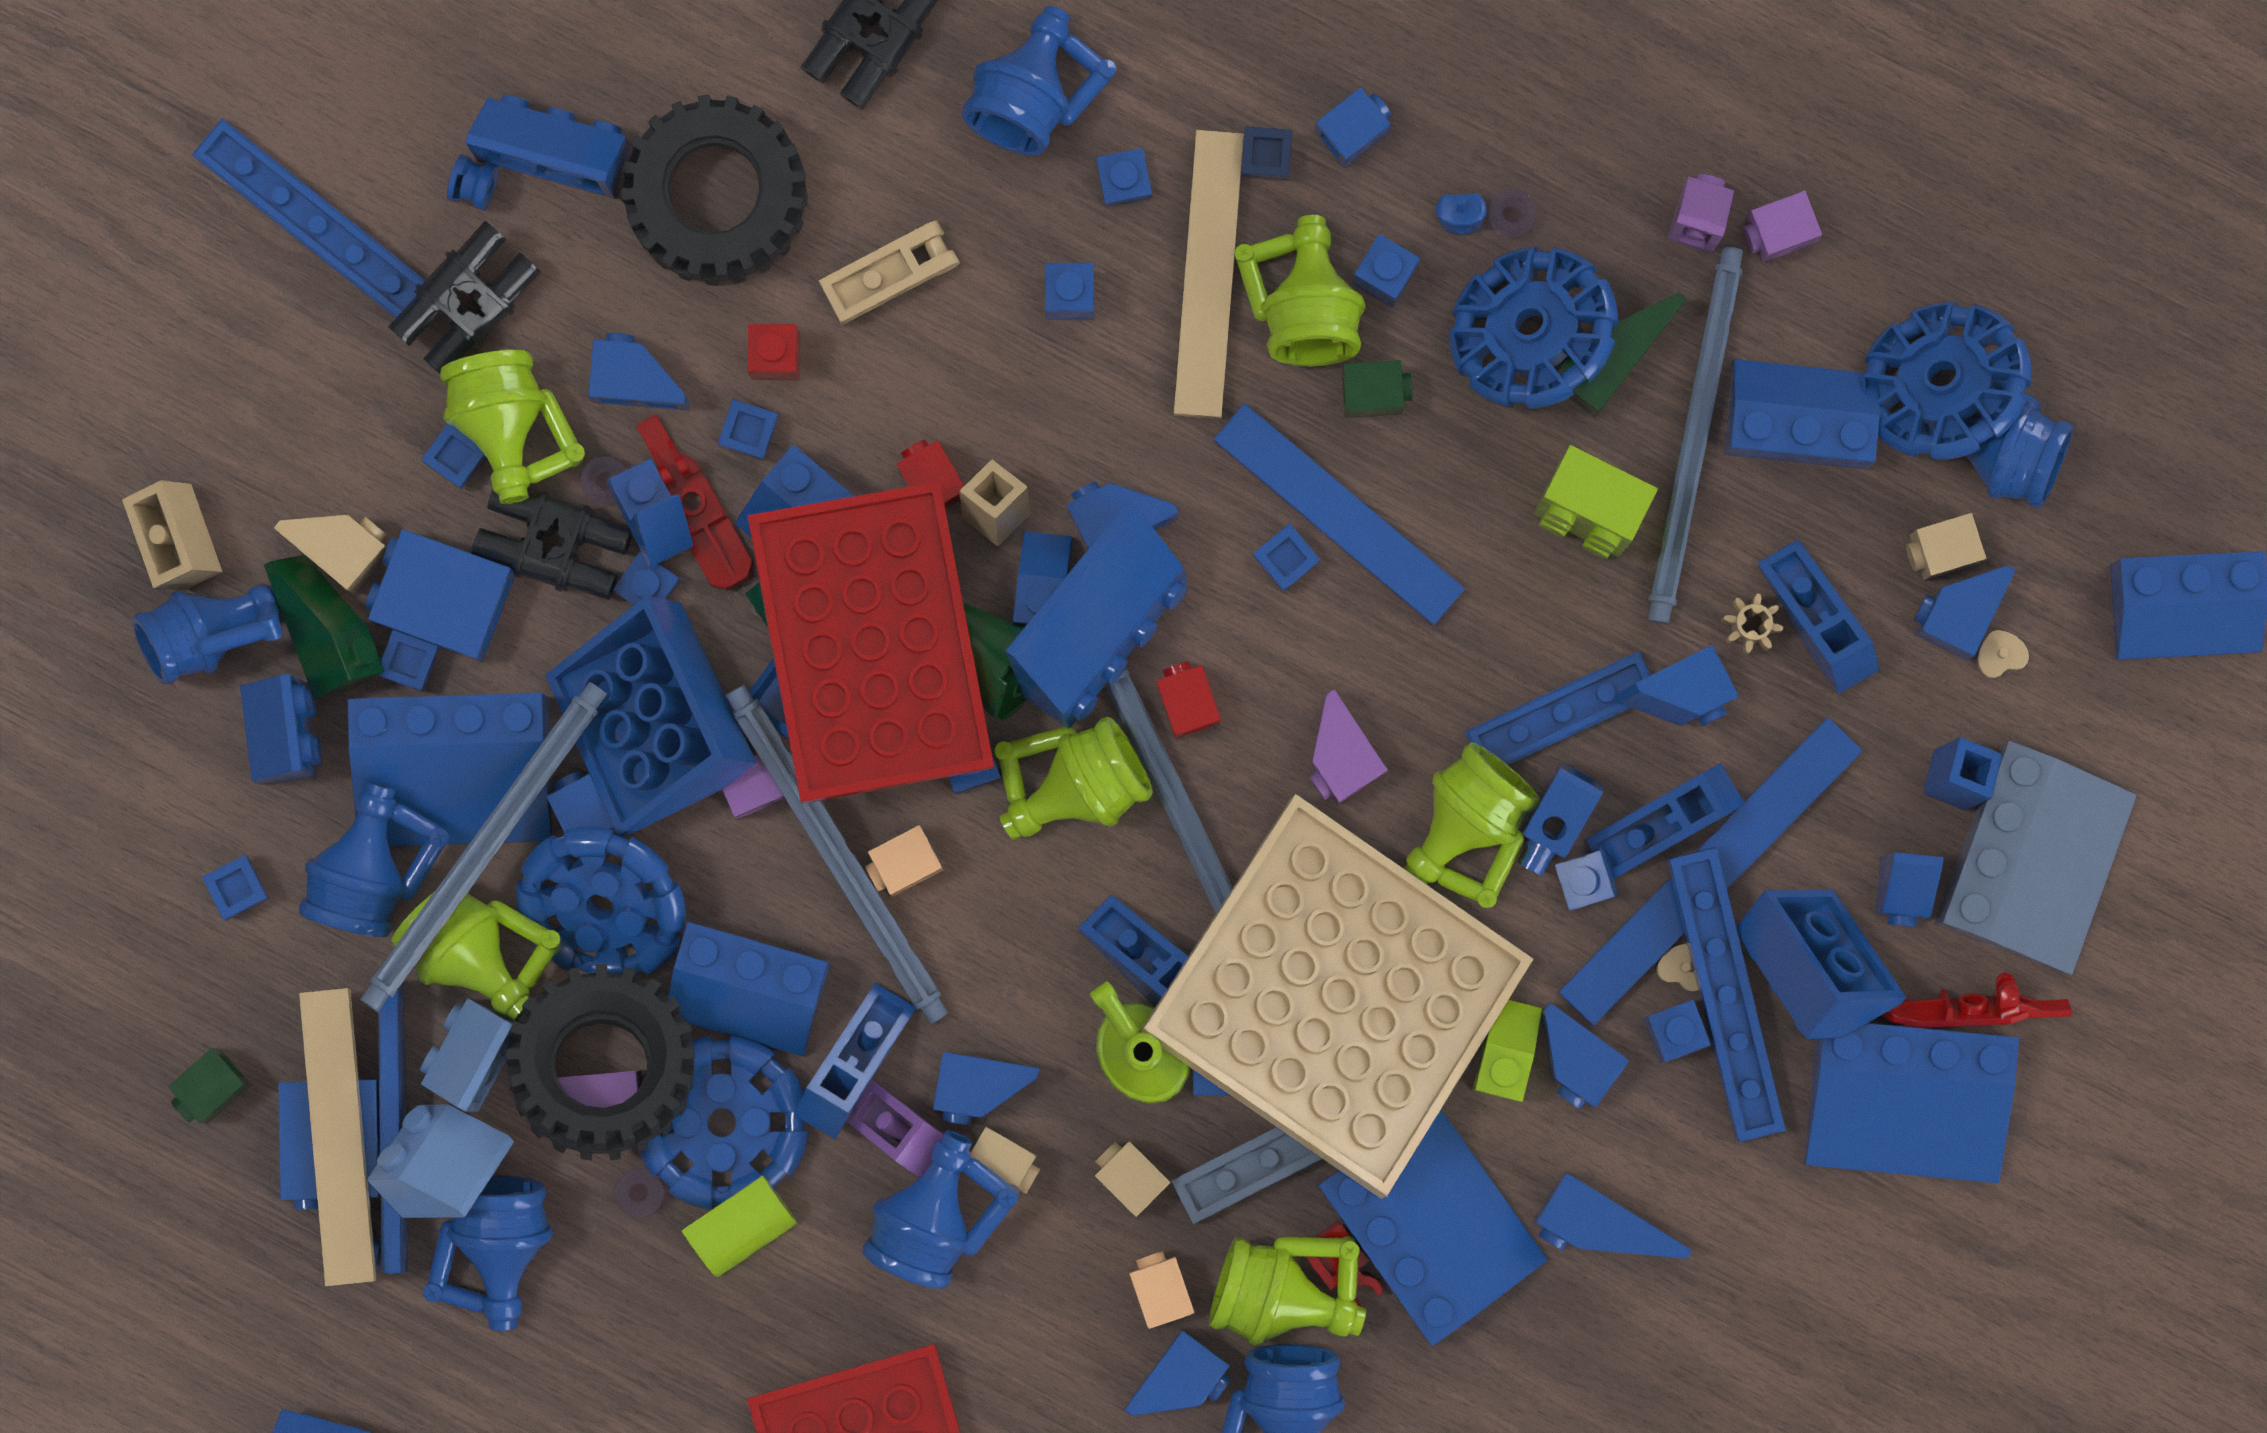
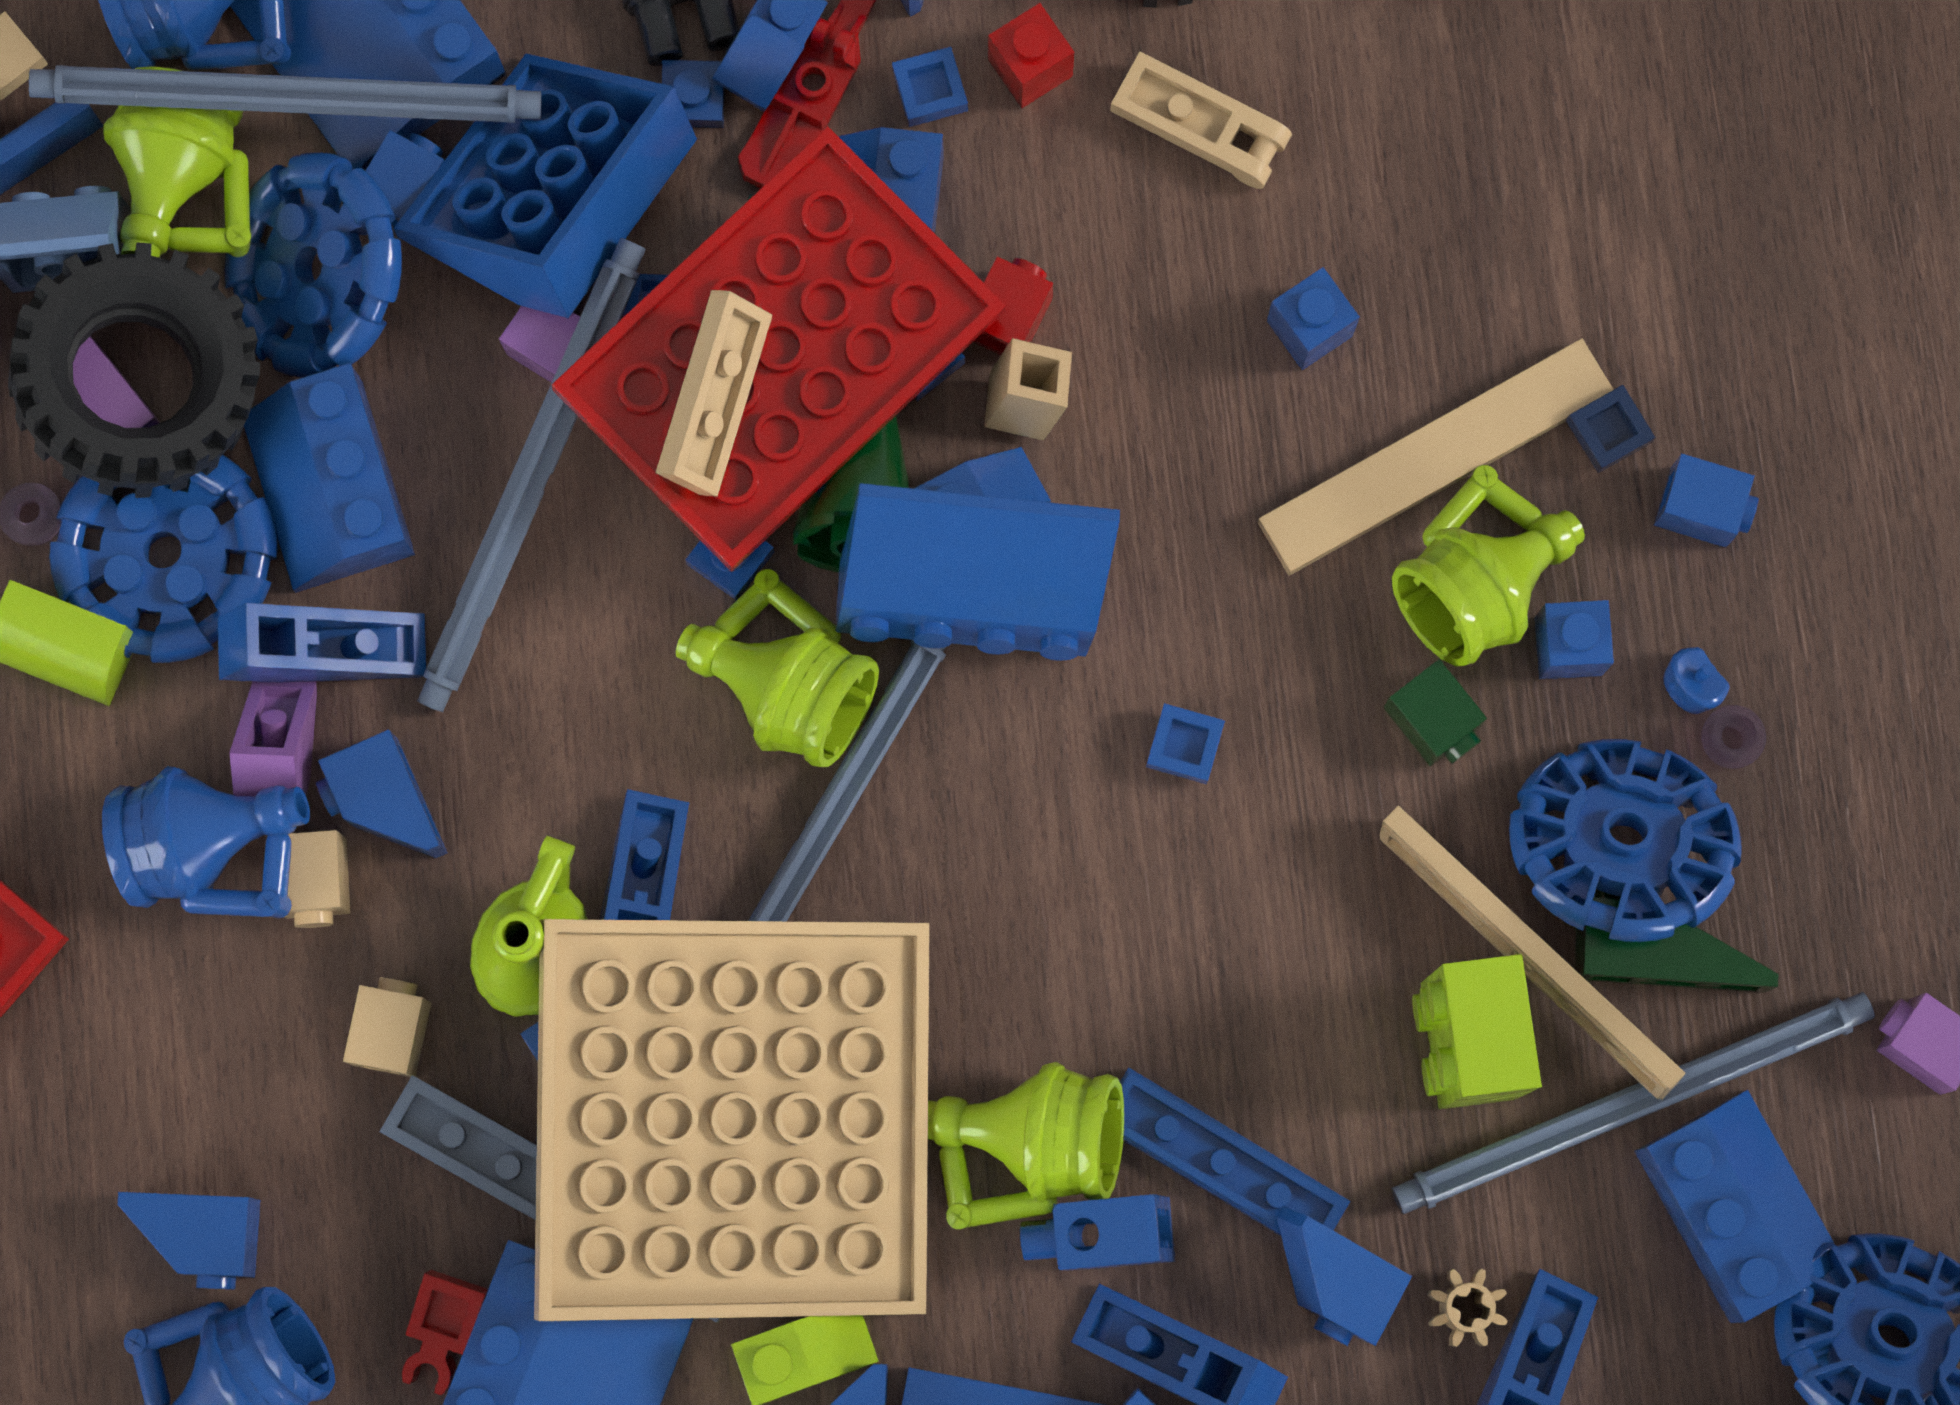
camera: 55 degrees right, 5 degrees down
(879, 703) = (714, 393): none -> tan plate
(903, 862) = (573, 554): light nougat brick -> none
(1020, 94) = (1487, 125): blue piece -> none
(1097, 506) = (1131, 559): blue slope -> none
(1123, 177) = (1476, 298): blue plate -> none
(1160, 1289) = (283, 1145): light nougat brick -> none
(1187, 699) = (955, 739): red brick -> none
(1268, 1294) = (353, 1268): lime piece -> none
(1338, 514) = (1272, 771): blue tile -> none
(1342, 754) = (1010, 947): medium lavender slope -> none
(1563, 435) = (1541, 962): none -> tan tile
(1586, 880) = (1054, 1314): plate -> none
(1701, 213) = (1882, 940): medium lavender slope -> none

